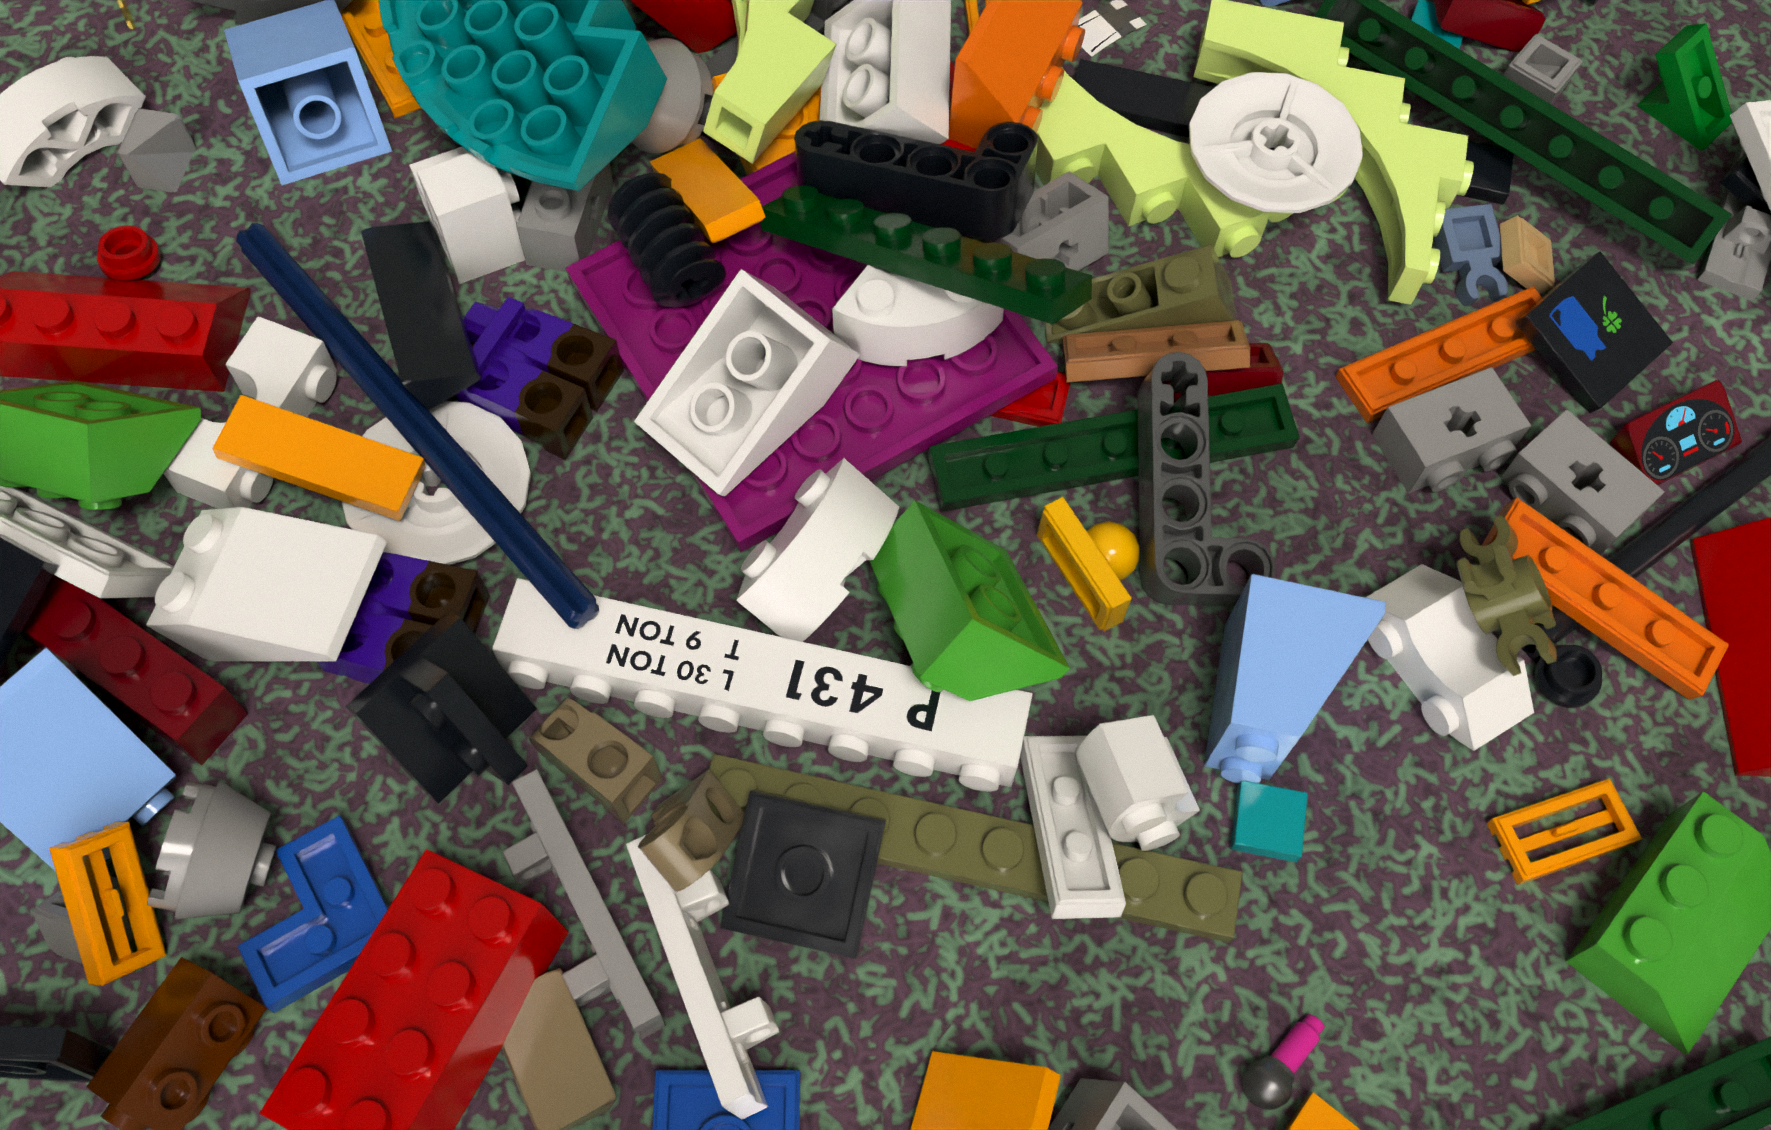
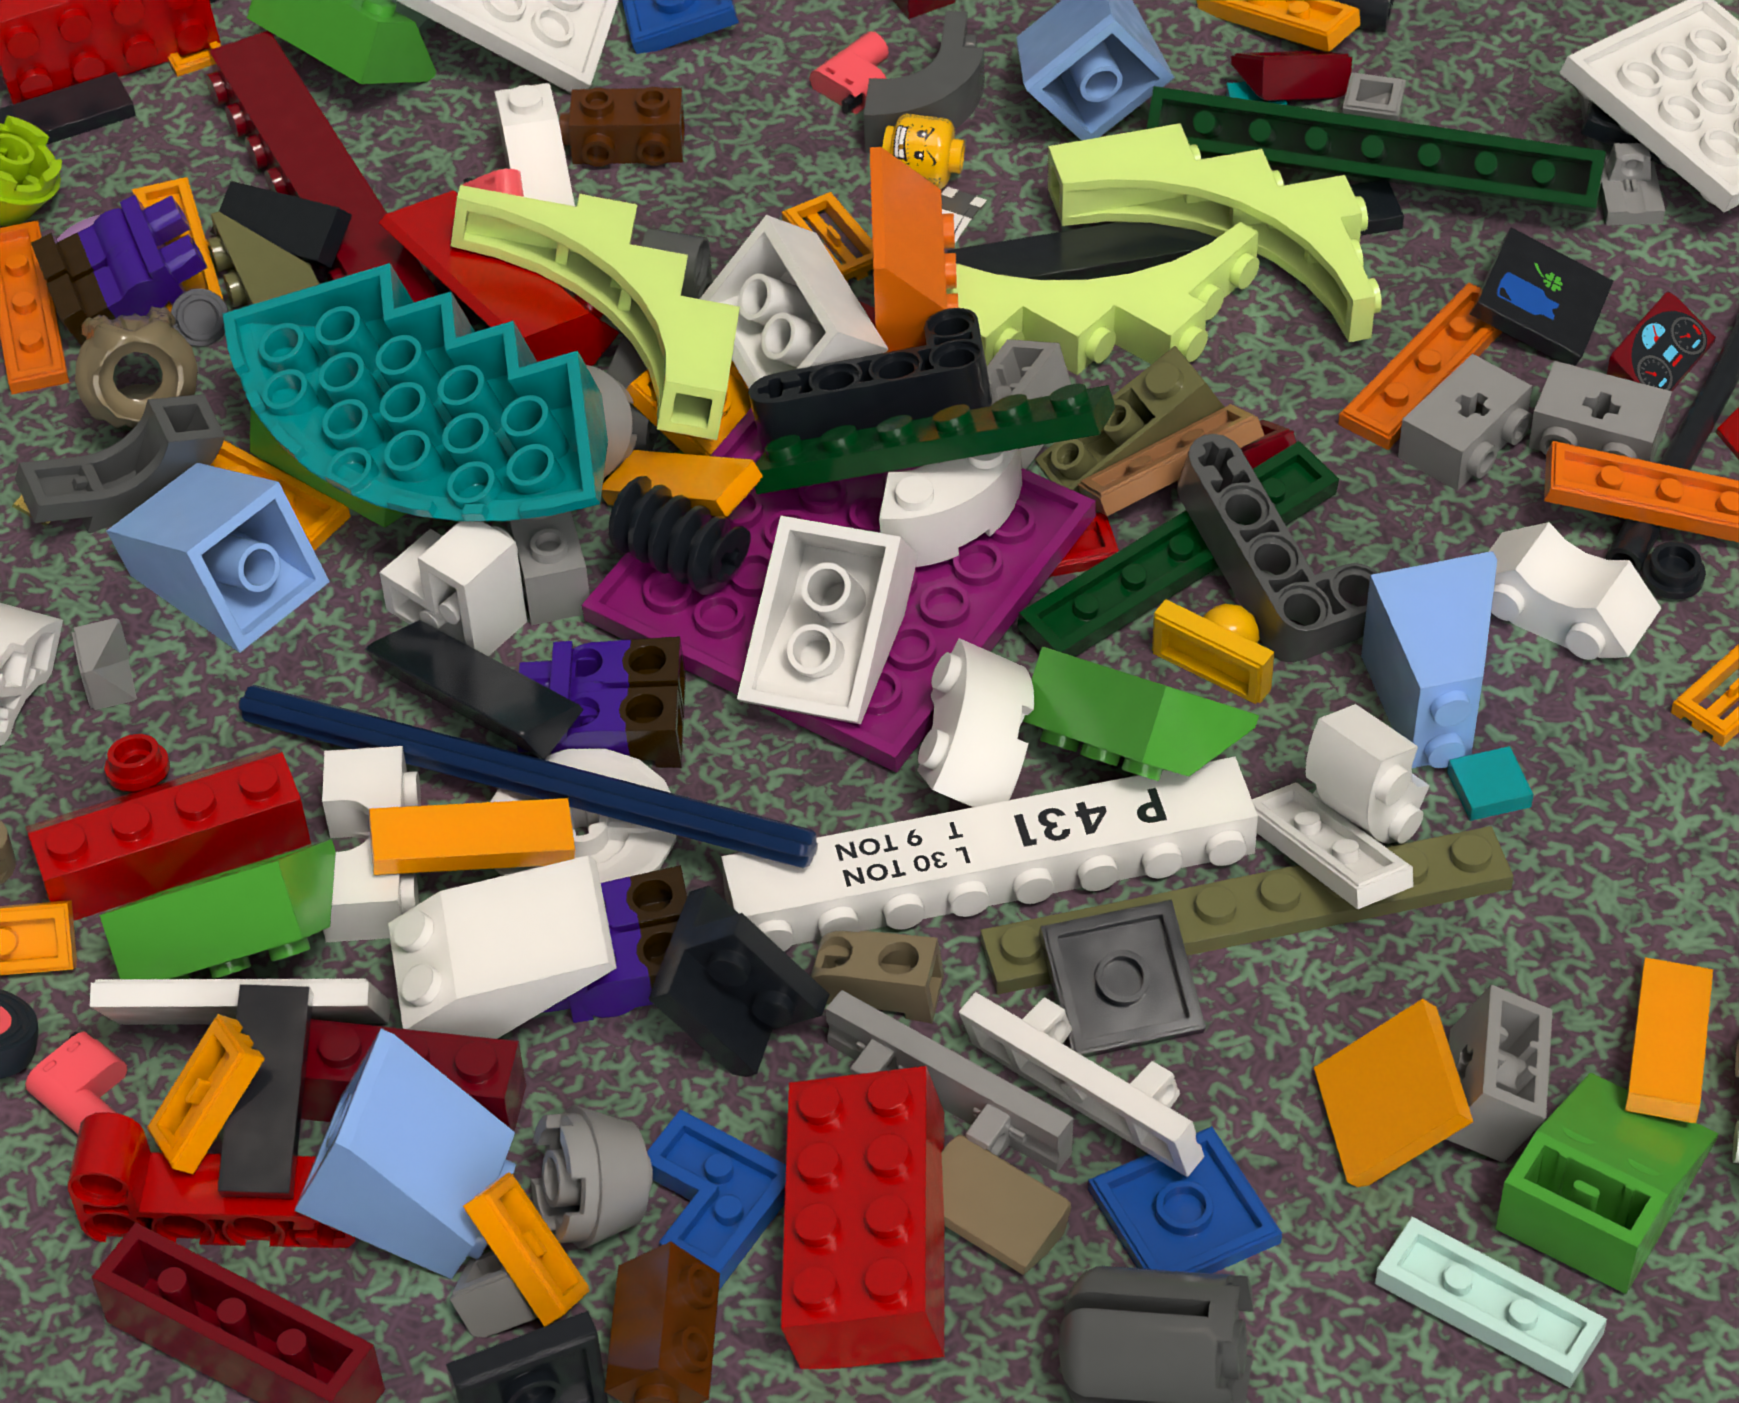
camera: 20 degrees left, 15 degrees down
(687, 832) = (1009, 975): dark tan leg -> none
(1270, 1079) = (1605, 965): piece -> none
(1305, 124) = (1180, 243): white piece -> none
(1472, 245) = (1402, 274): sand blue plate -> none
(1507, 595) = (1588, 512): olive pin -> none
(1527, 254) = (1448, 257): tan tile -> none
(1692, 91) = (1514, 71): green slope -> none

